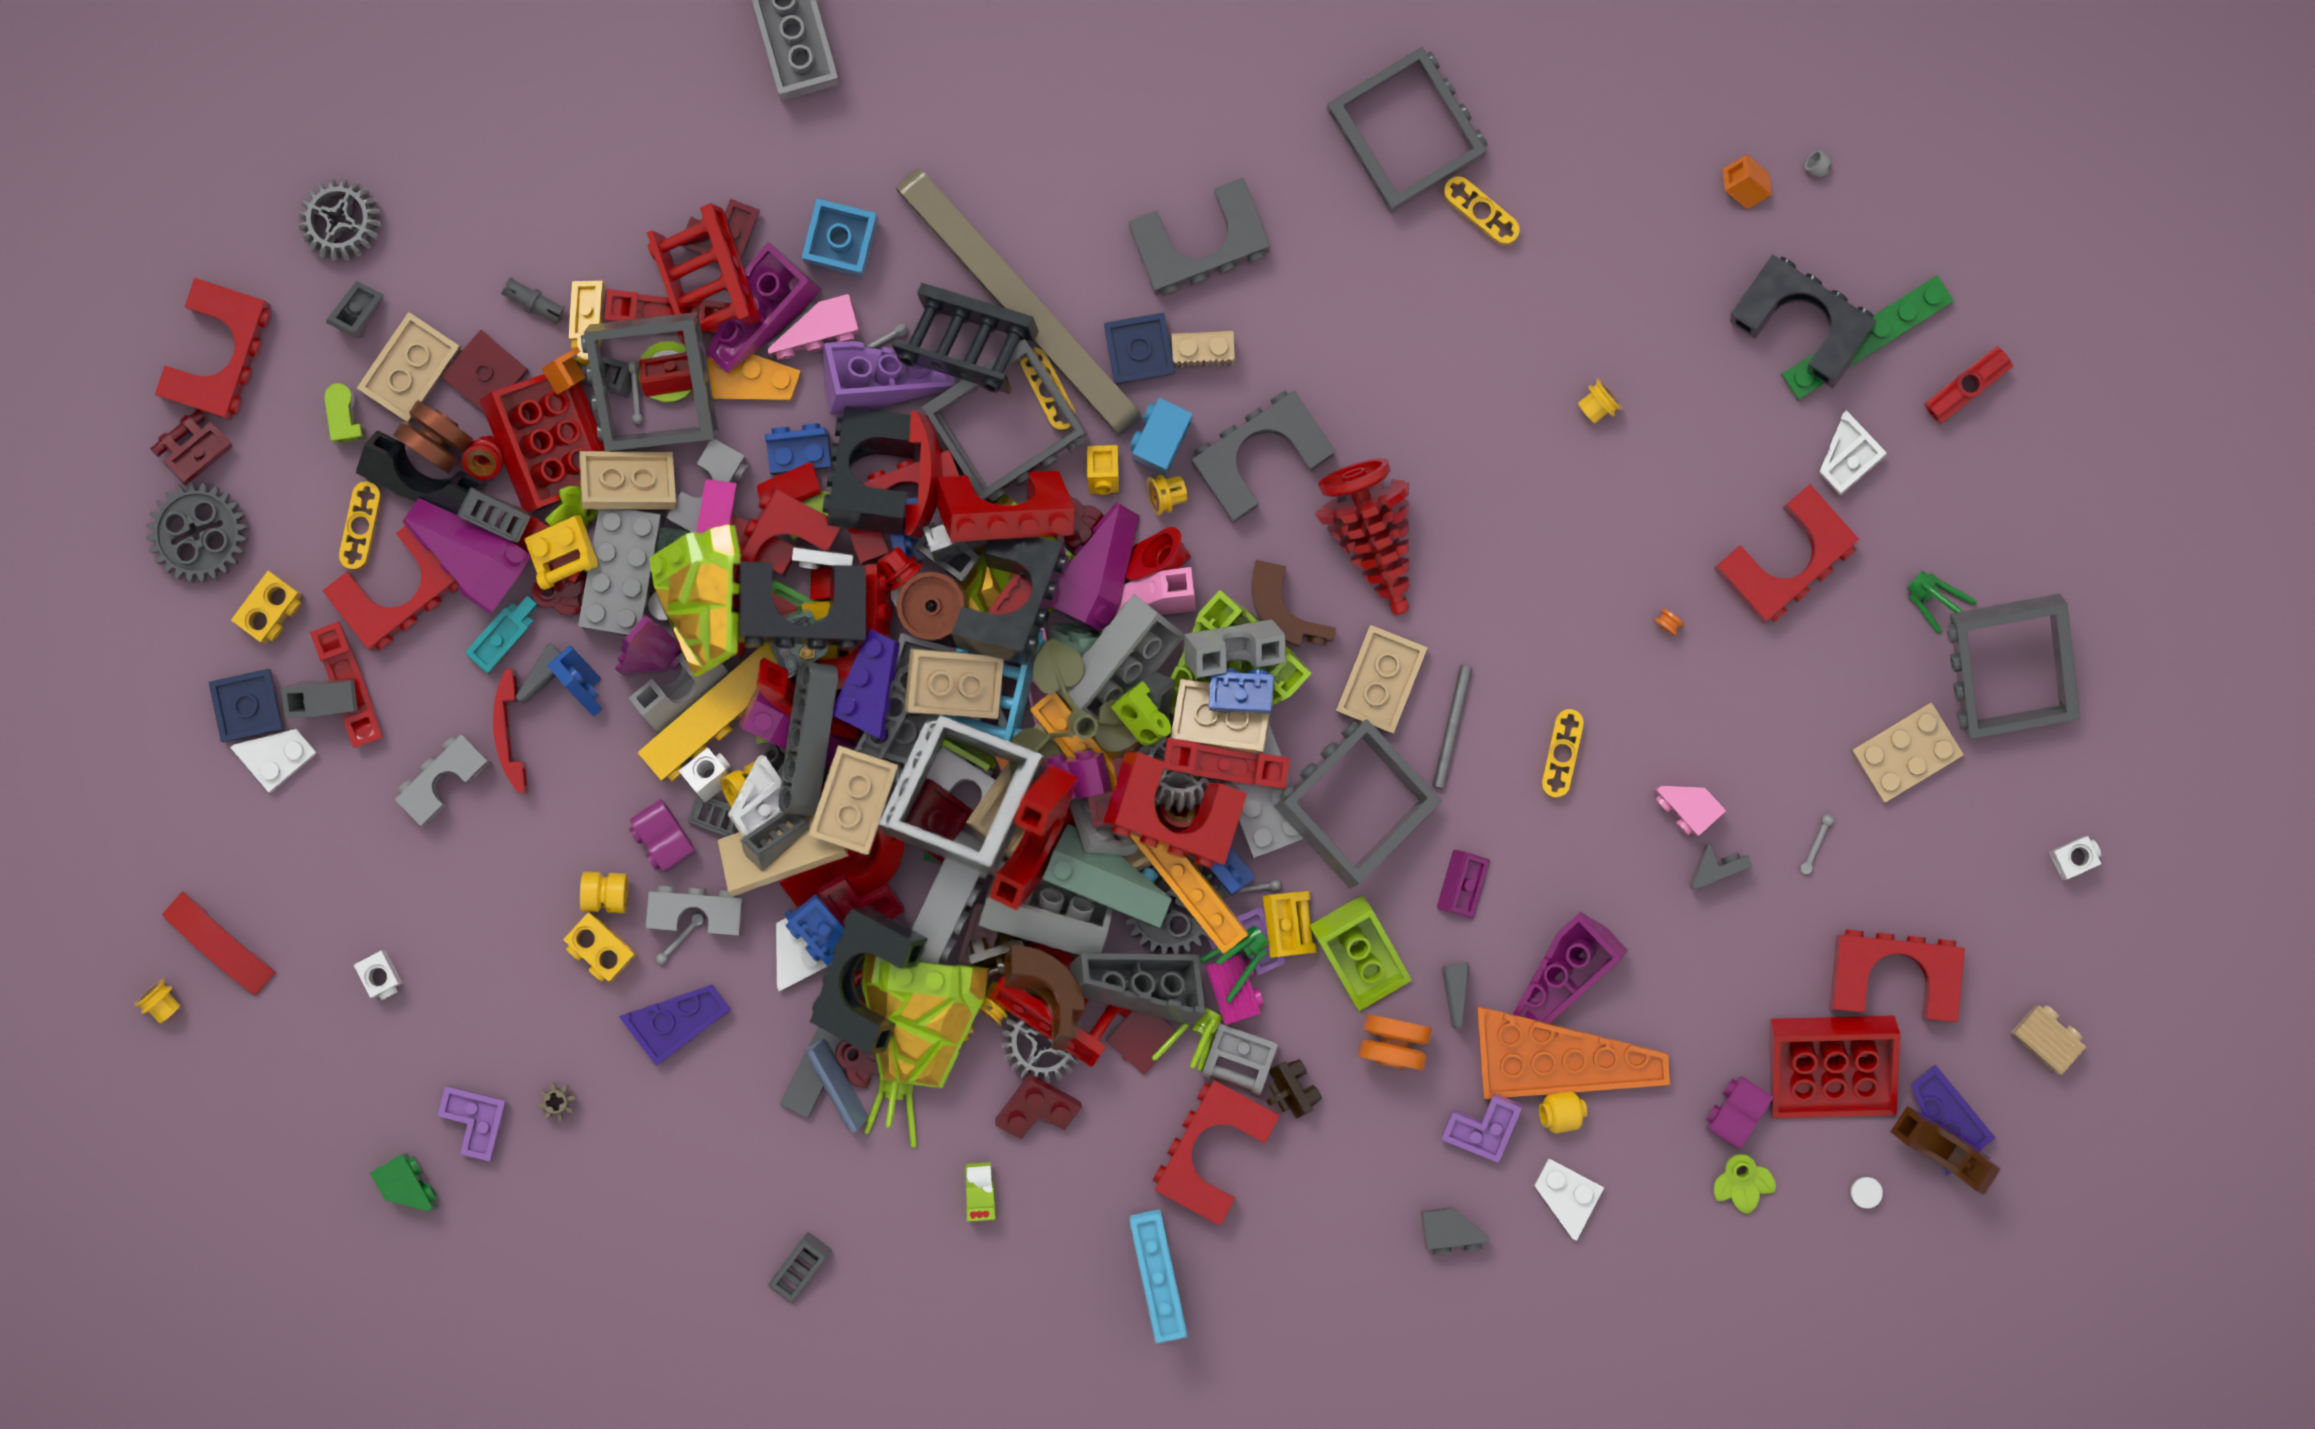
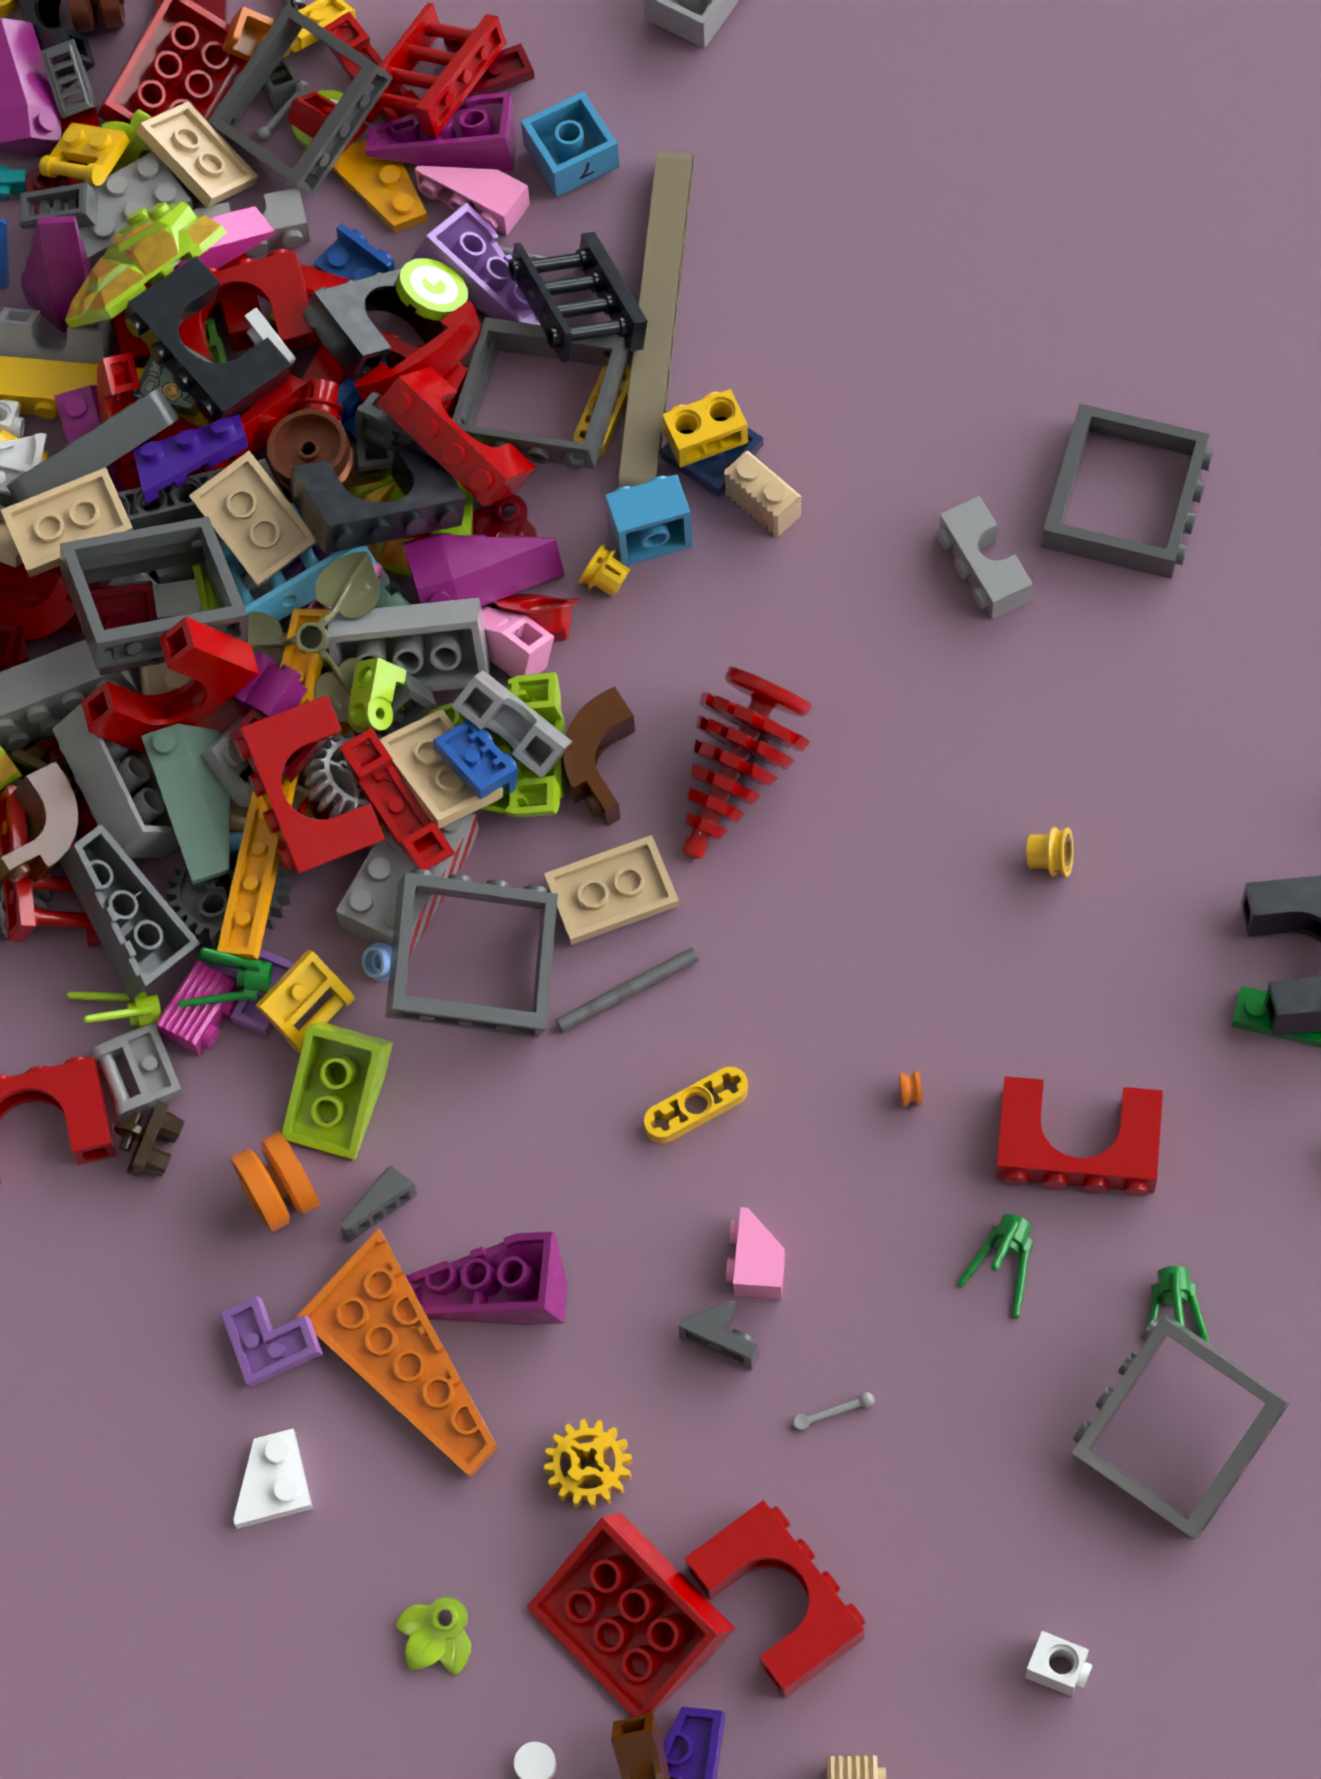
camera: 50 degrees right, 20 degrees down
(483, 458) = (112, 42): red piece -> none
(608, 584) = (80, 198): none -> dark grey slope
(875, 424) = (431, 288): none -> tile
(1102, 469) = (574, 506): yellow bracket -> none
(1137, 346) = (709, 435): none -> yellow brick
(1140, 1038) = (79, 970): dark red piece -> none
(1170, 269) = (888, 446): dark grey arch -> none
(1233, 874) = (308, 904): blue bracket -> none
(1274, 885) = (285, 929): light grey hinge -> none
(1284, 418) = (678, 590): dark grey arch -> none
(1301, 856) = (377, 961): none -> light blue plate
(1395, 268) = (995, 584): none -> light grey arch
(1447, 1229) = (139, 1394): dark grey slope -> none
(1459, 201) = (1126, 599): yellow beam -> none
(1463, 884) = (489, 1127): magenta slope -> none
(1562, 1112) = (349, 1399): yellow head -> none
(1722, 996) = (599, 1450): none -> yellow gear
(1738, 1112) = (501, 1564): magenta brick -> none
(1811, 650) = (1009, 1238): none -> green plant
(1850, 455) = (1227, 1112): white wing -> none
(1907, 752) = (1003, 1416): tan plate -> none

